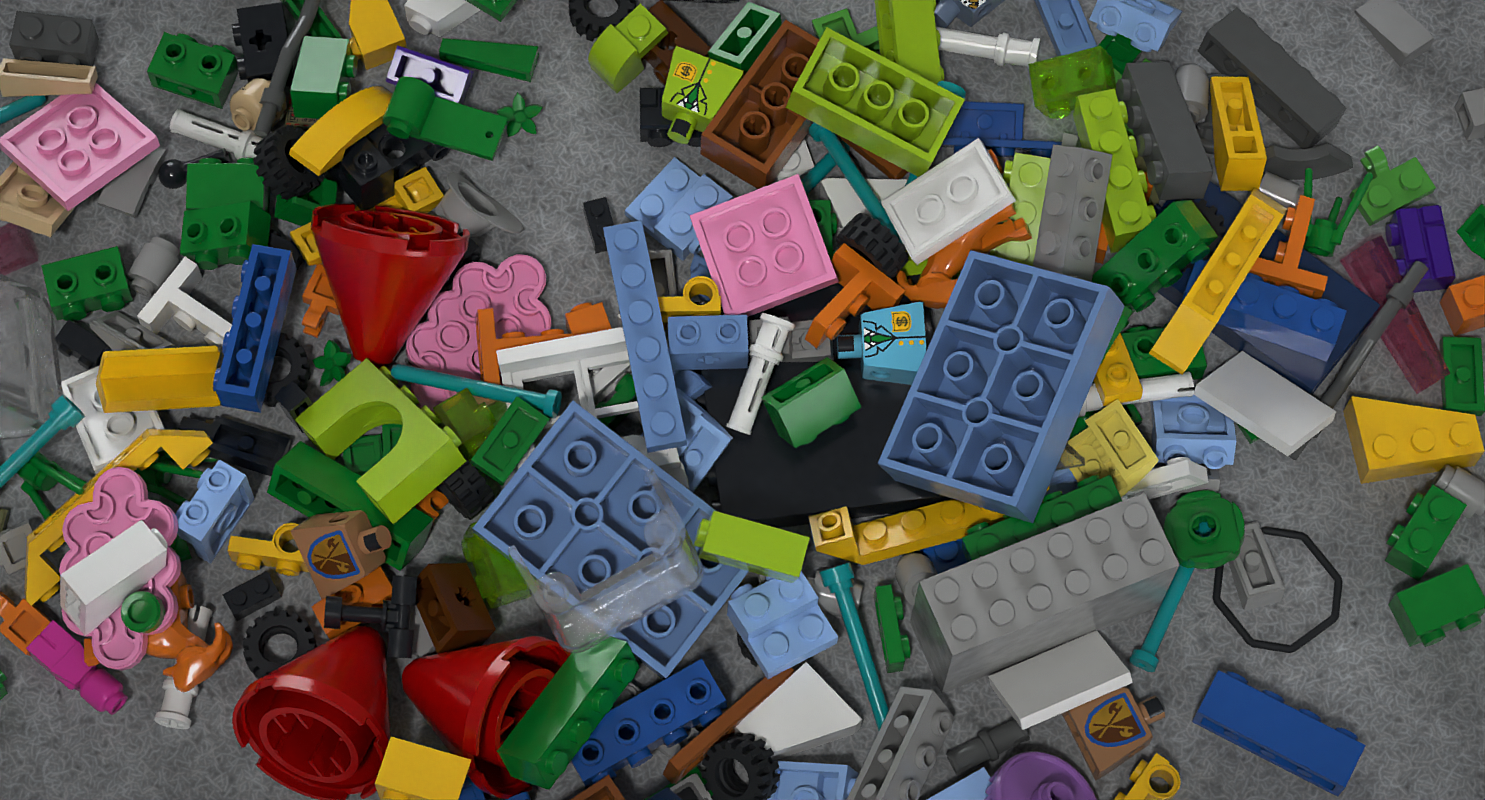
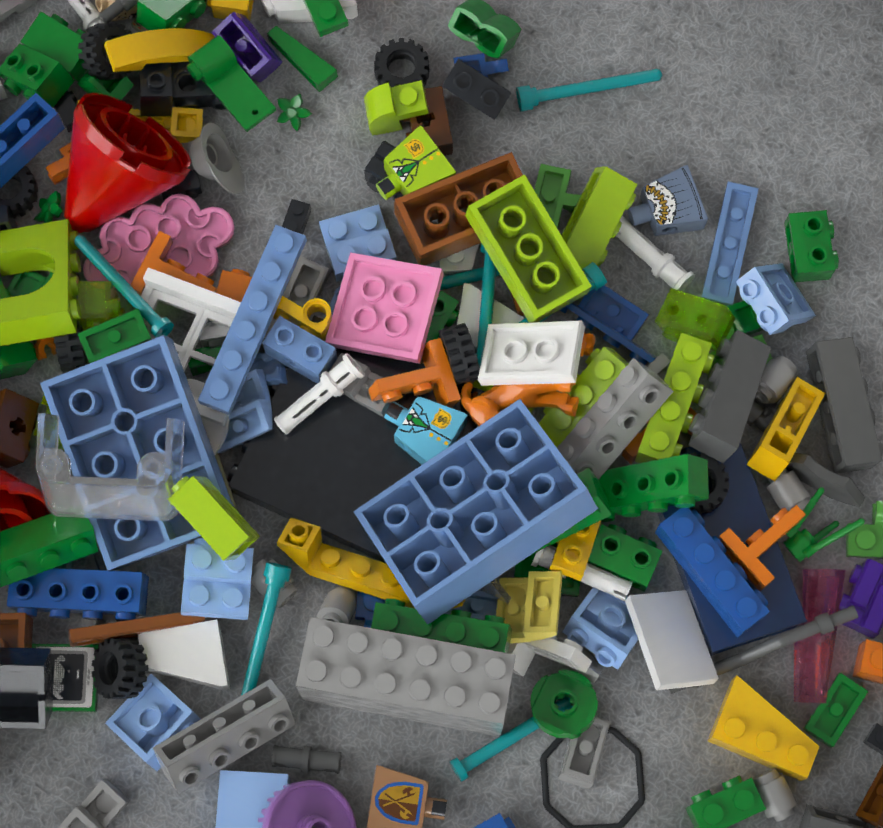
camera: 35 degrees right, 5 degrees up
(174, 172) = (34, 9): black bar -> none
(746, 37) = (478, 148): green brick -> none
(811, 402) = (340, 438): green brick -> none
(889, 612) = (290, 645): green plate -> none
(1060, 679) = (386, 745): white tile -> none
(1218, 281) = (691, 529): yellow slope -> none

